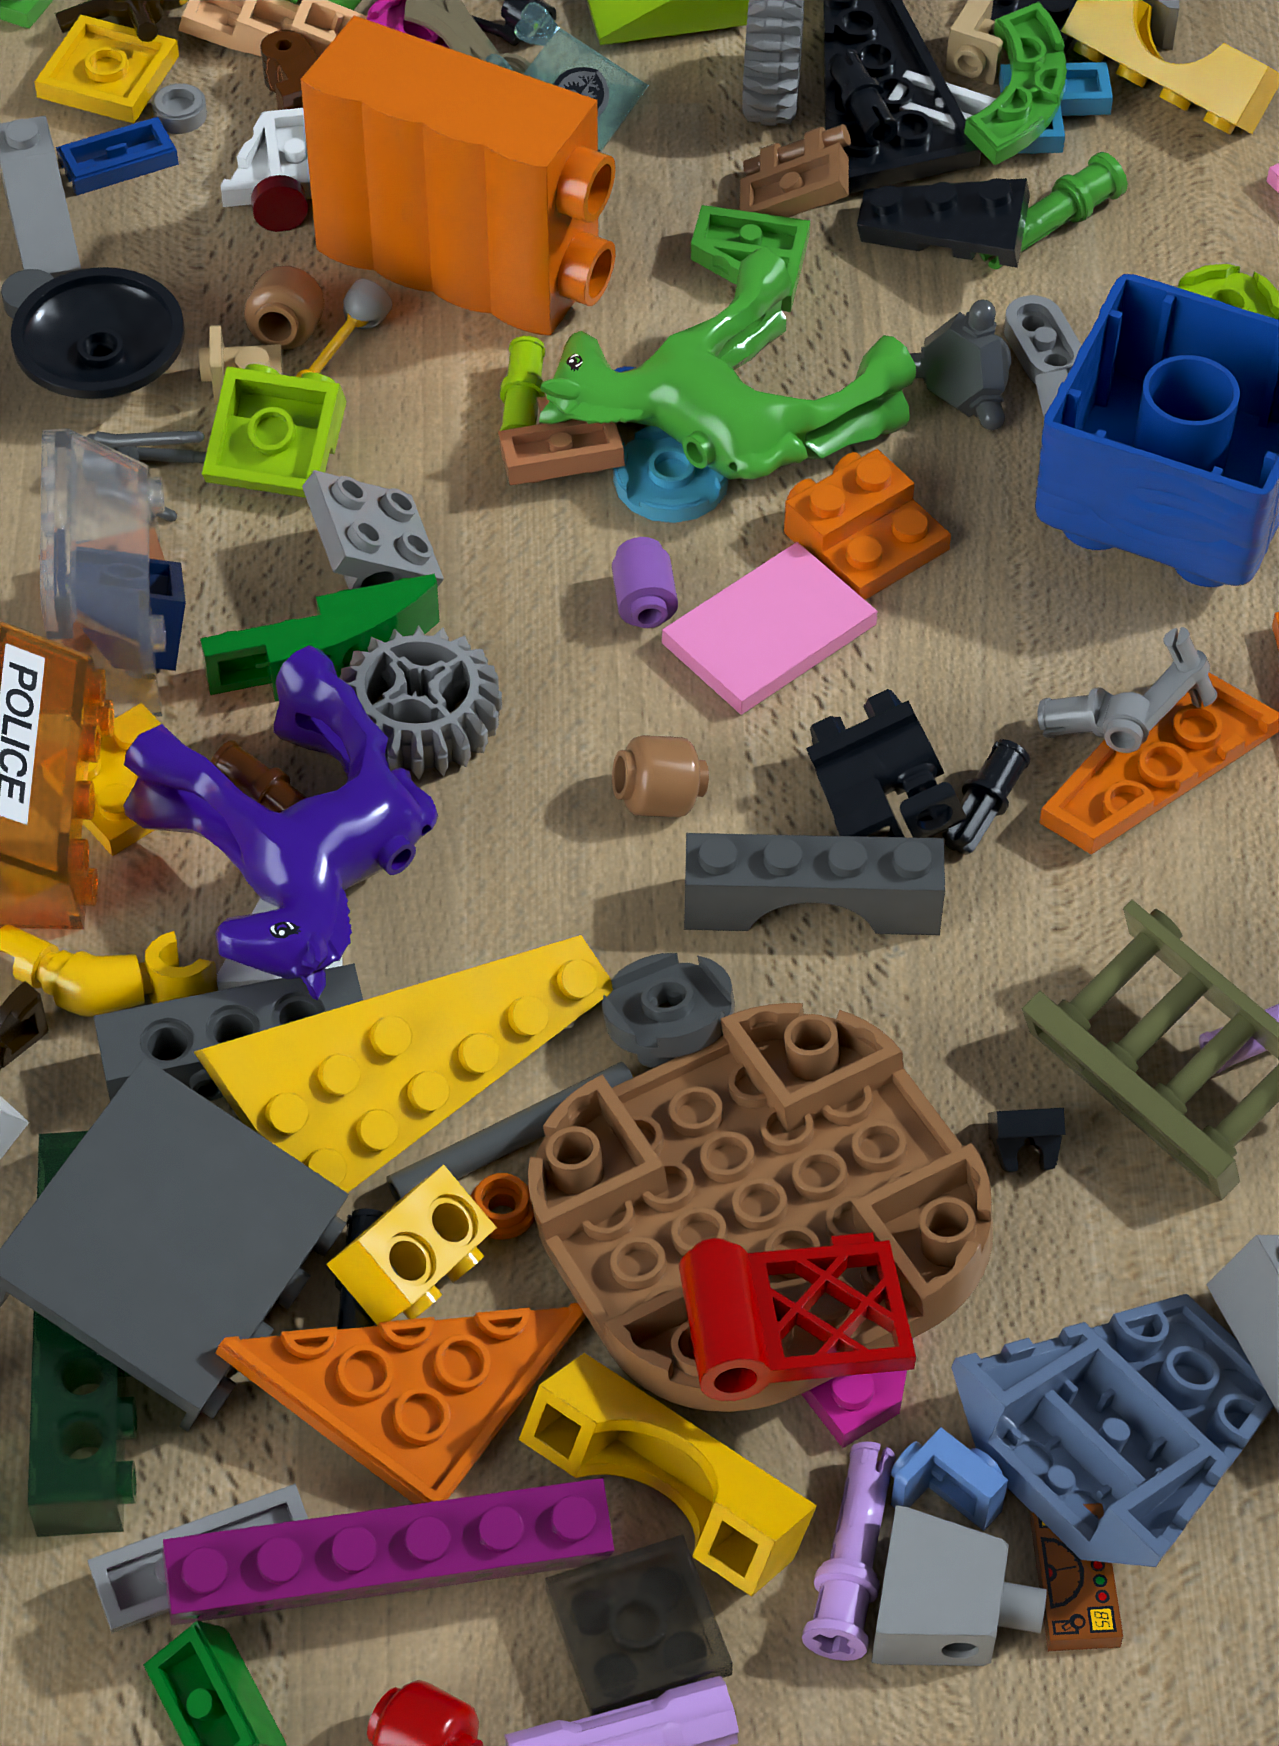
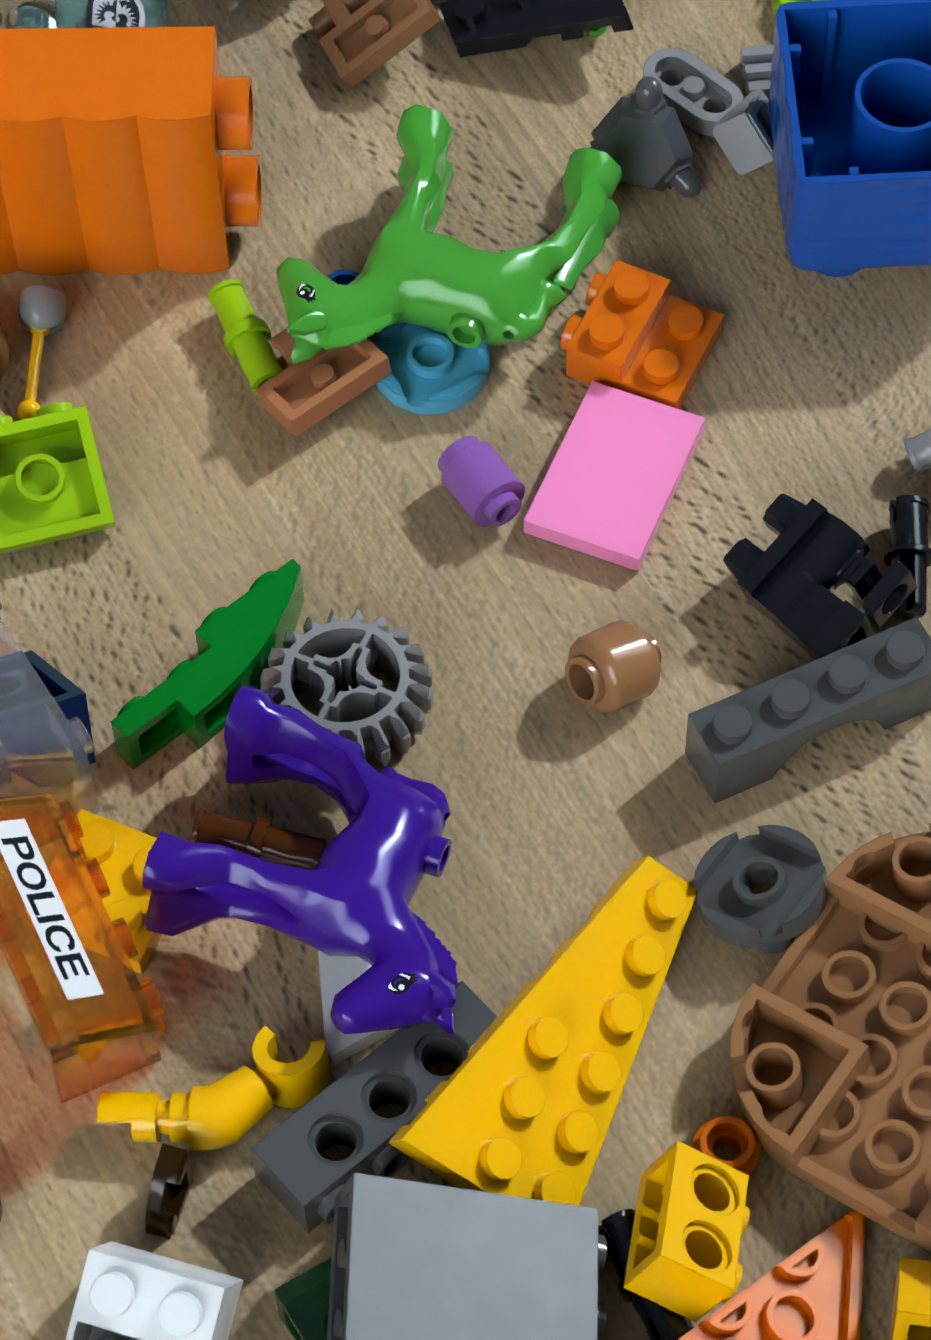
camera: 25 degrees left, 5 degrees up
(369, 531) = (201, 543): light grey plate -> none
(494, 1140) = (683, 1082): dark grey piece -> none
(730, 235) = (364, 103): bright green wing -> none

